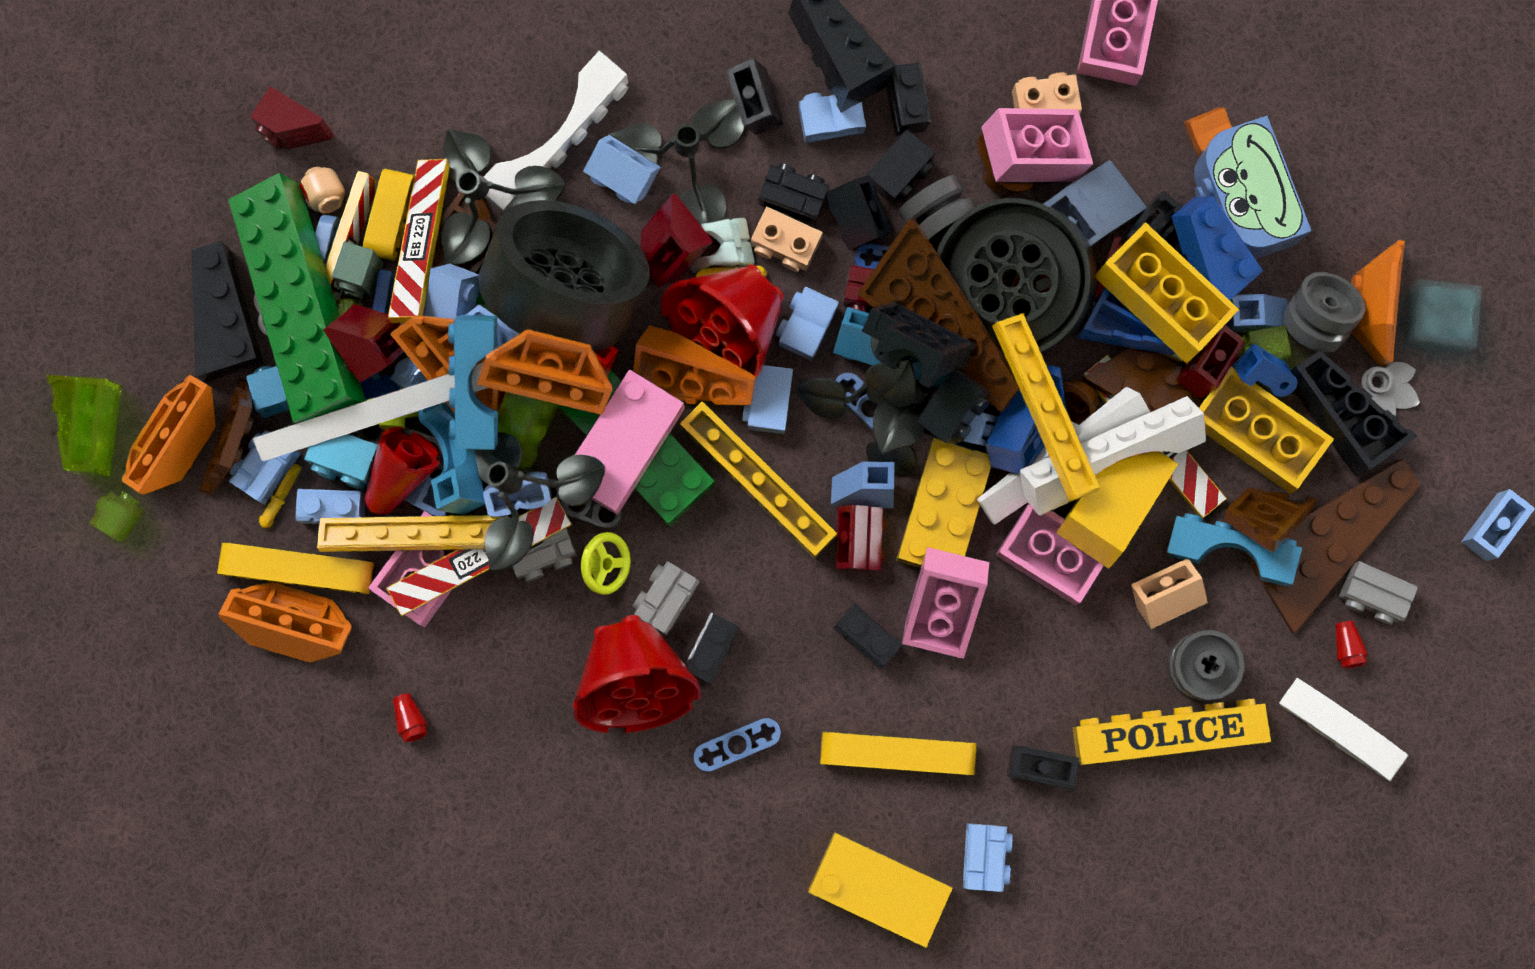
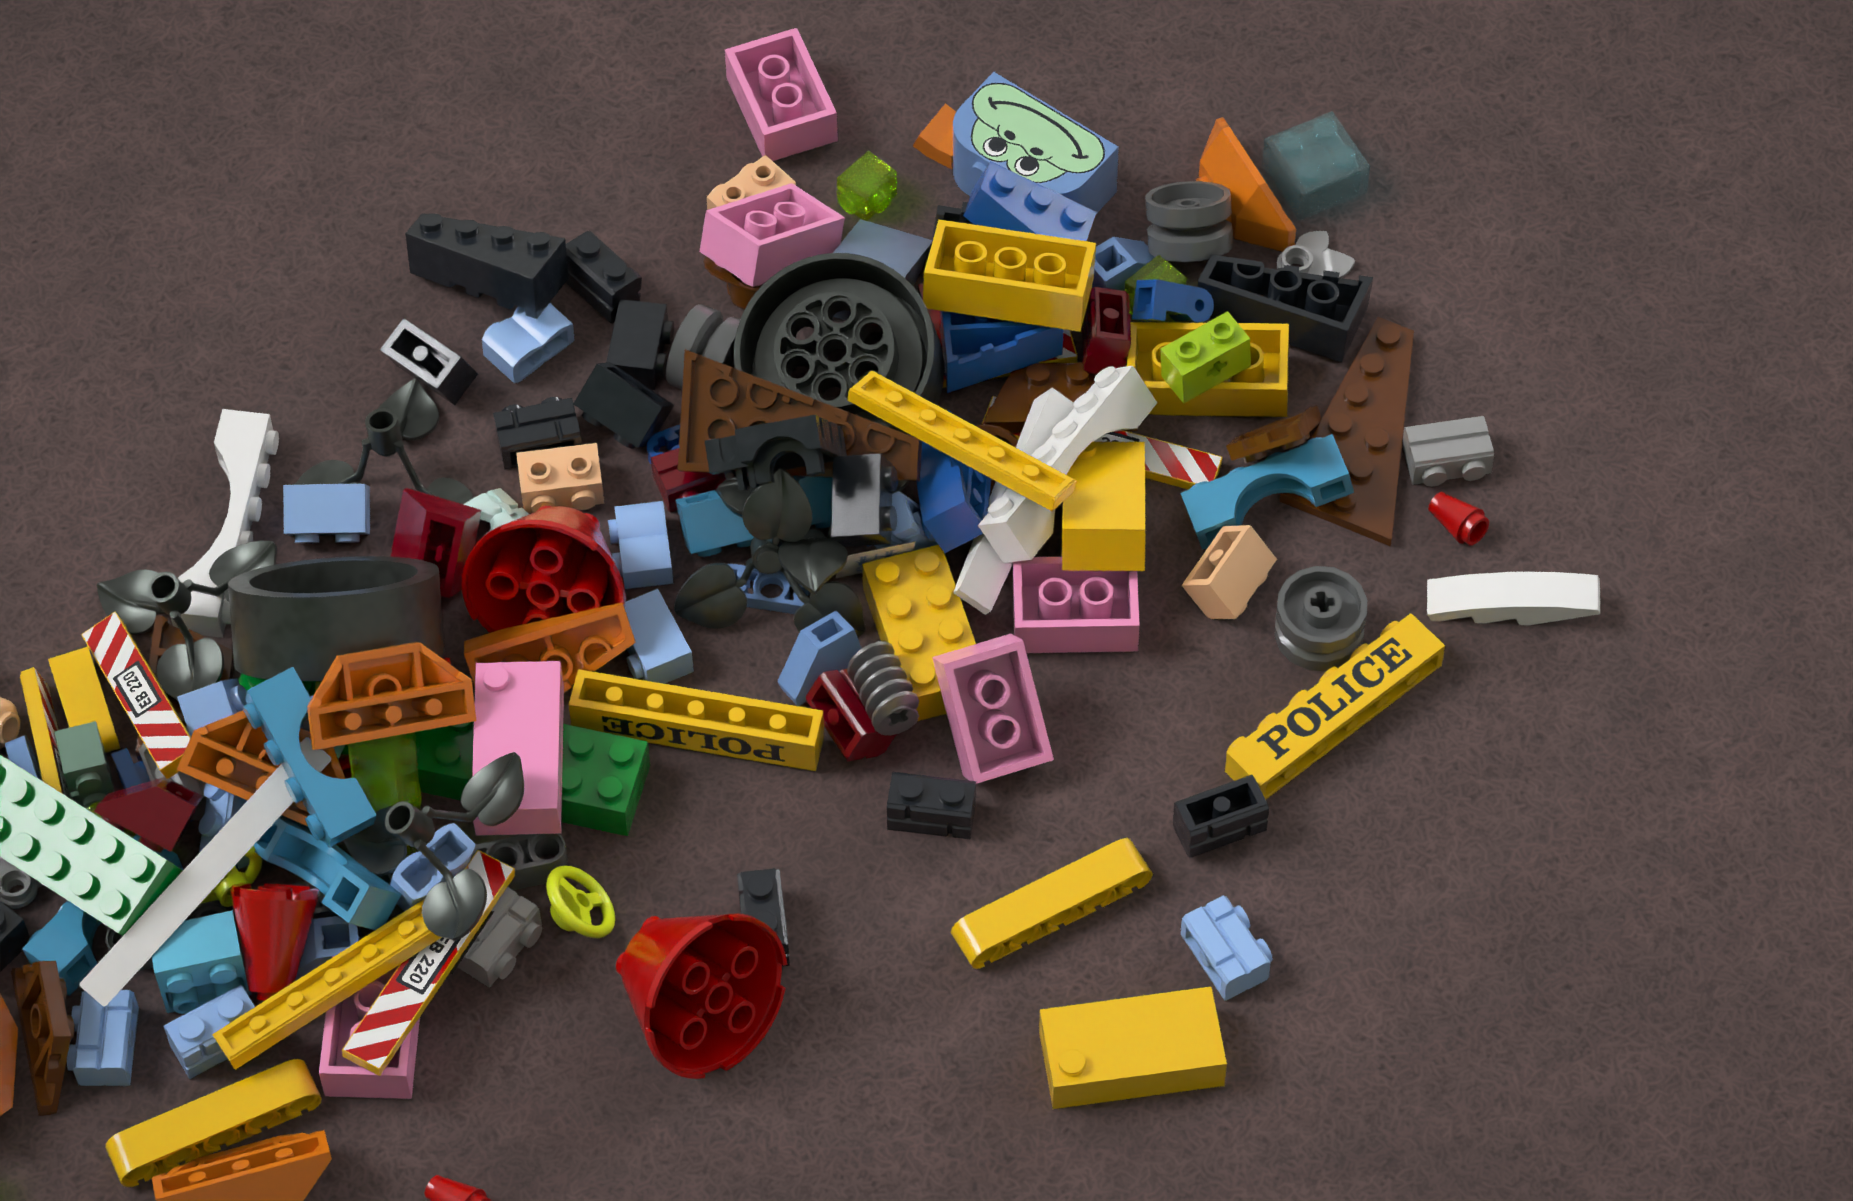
camera: 30 degrees left, 25 degrees down
(276, 501) = (143, 1068): yellow piece -> none
(666, 597) = (673, 885): light grey brick -> none
(711, 745) = (860, 988): medium blue beam -> none
(884, 543) = (884, 688): none -> flat silver piece
(1129, 139) = (866, 186): none -> clear neon green brick
(1258, 435) = (1205, 357): none -> lime brick
(1498, 525) = (1520, 316): light blue brick -> none

